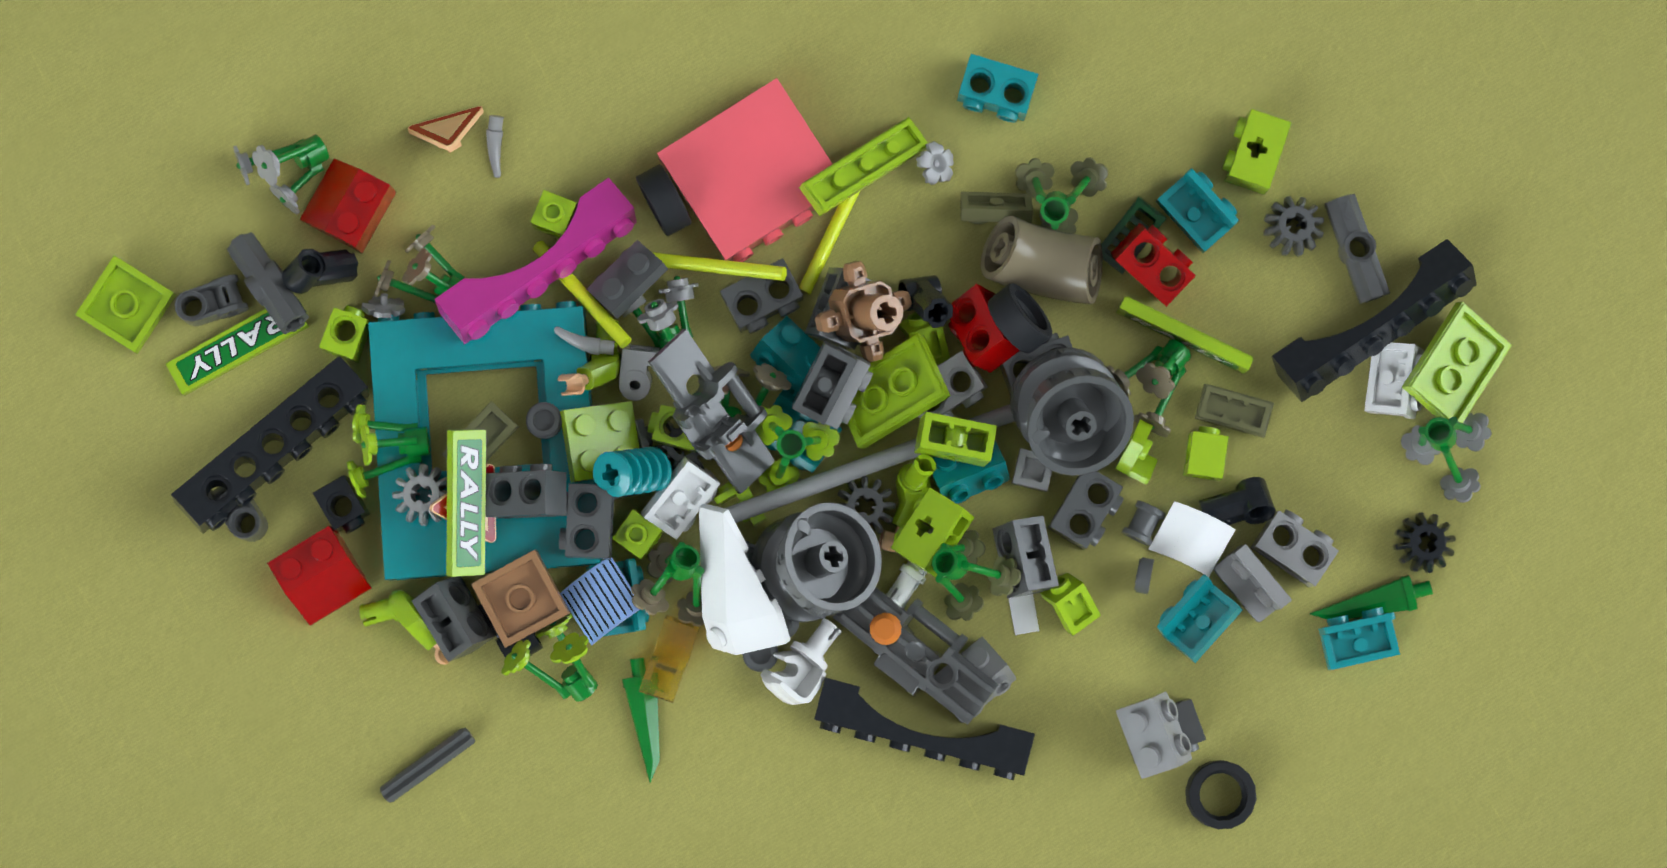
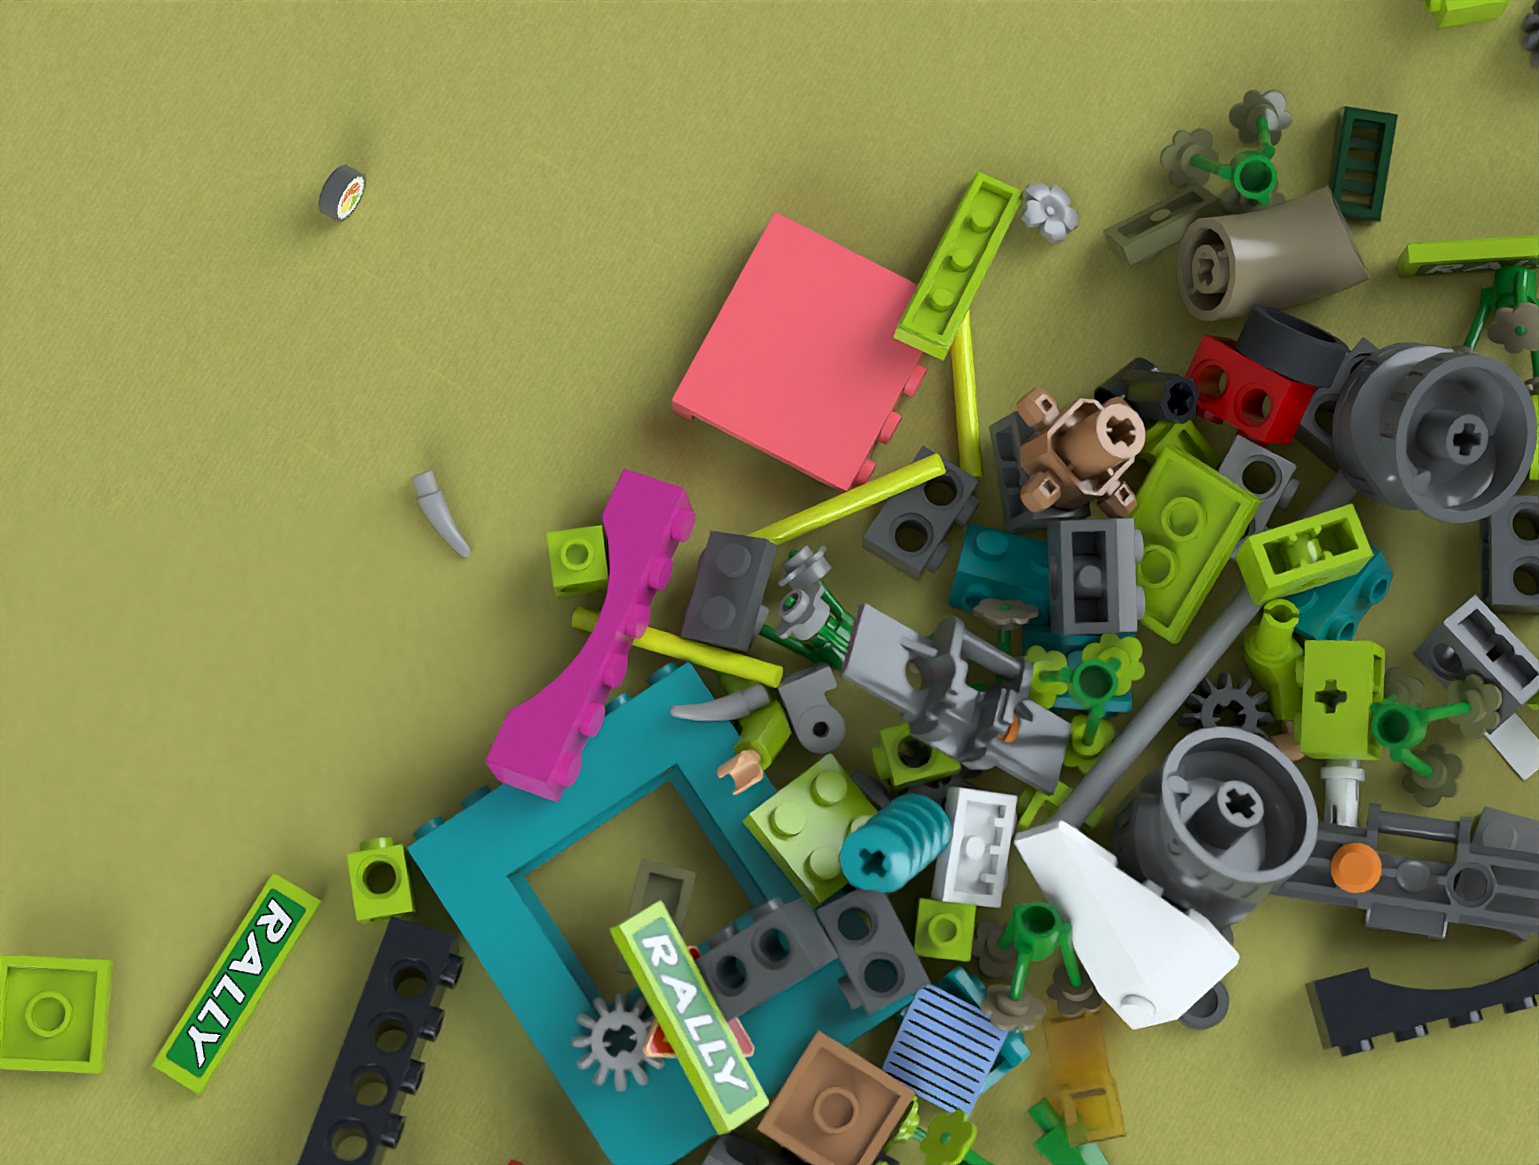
camera: 25 degrees left, 5 degrees down
(214, 301) = (172, 939): dark grey piece -> none
(266, 283) = (234, 872): dark grey piece -> none
(306, 153) = (187, 667): plant -> none
(319, 269) = (296, 812): black piece -> none
(328, 497) = (484, 1122): black brick -> none
(348, 205) = (284, 704): red slope -> none
(384, 307) = (413, 816): light grey plant -> none
(412, 442) = (563, 977): plant -> none
(419, 269) = (437, 736): plant -> none
(448, 129) = (365, 528): light nougat piece -> none
(544, 420) = (727, 845): dark grey tile -> none
(663, 200) = (716, 457): black tyre -> none
(804, 667) = (1273, 985): white piece -> none
(999, 78) = (1066, 55): teal brick -> none
(1031, 472) = (1419, 545): light grey plate -> none
(1148, 268) = (1417, 190): red brick -> none
(1198, 209) = (1431, 80): teal bracket -> none

